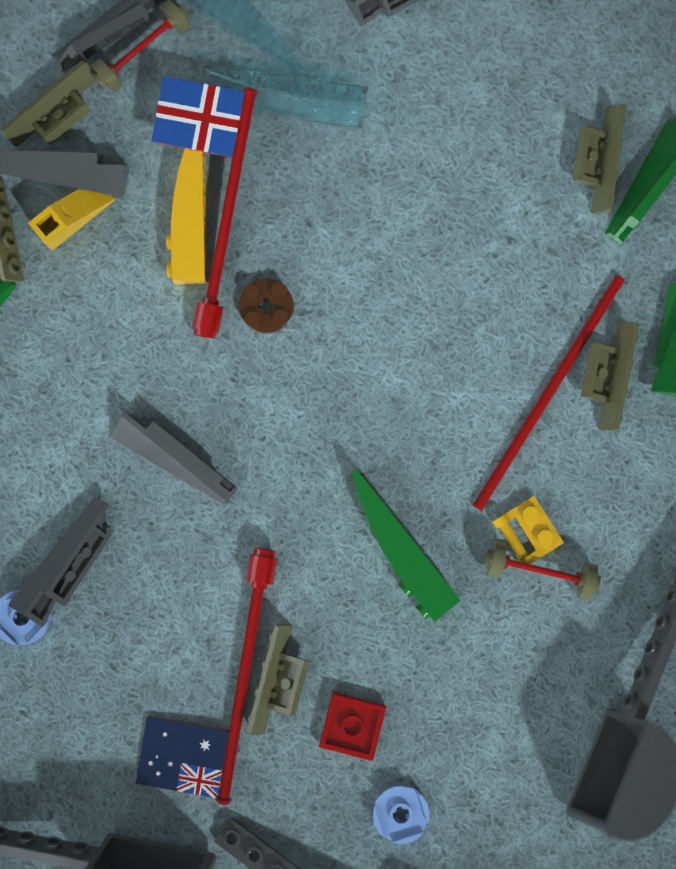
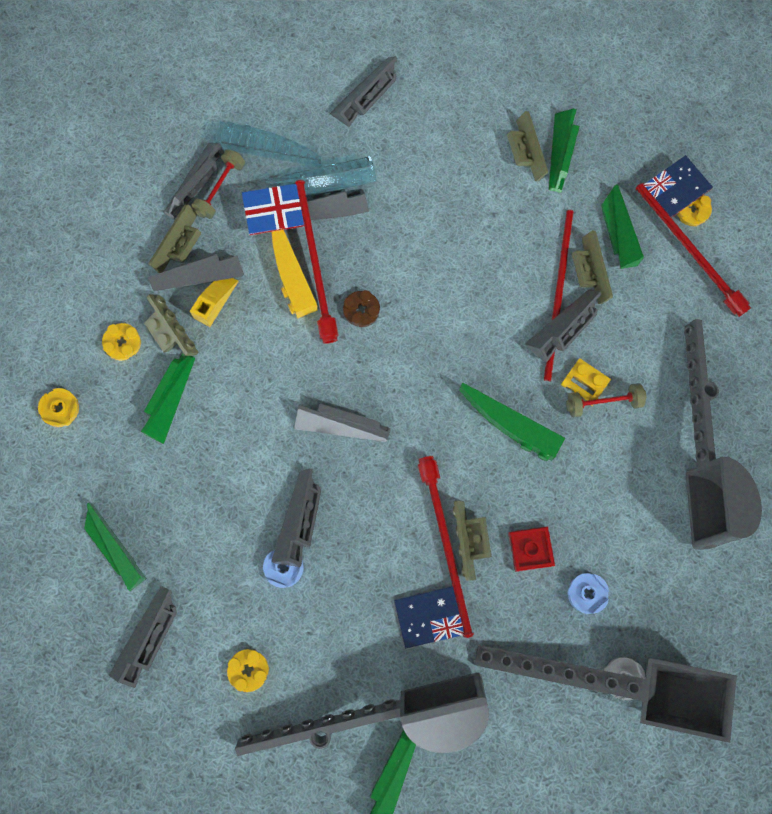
camera: 30 degrees left, 10 degrees down
(293, 139) = (336, 204): none -> dark grey wedge
(534, 444) = (565, 327): none -> dark grey wedge

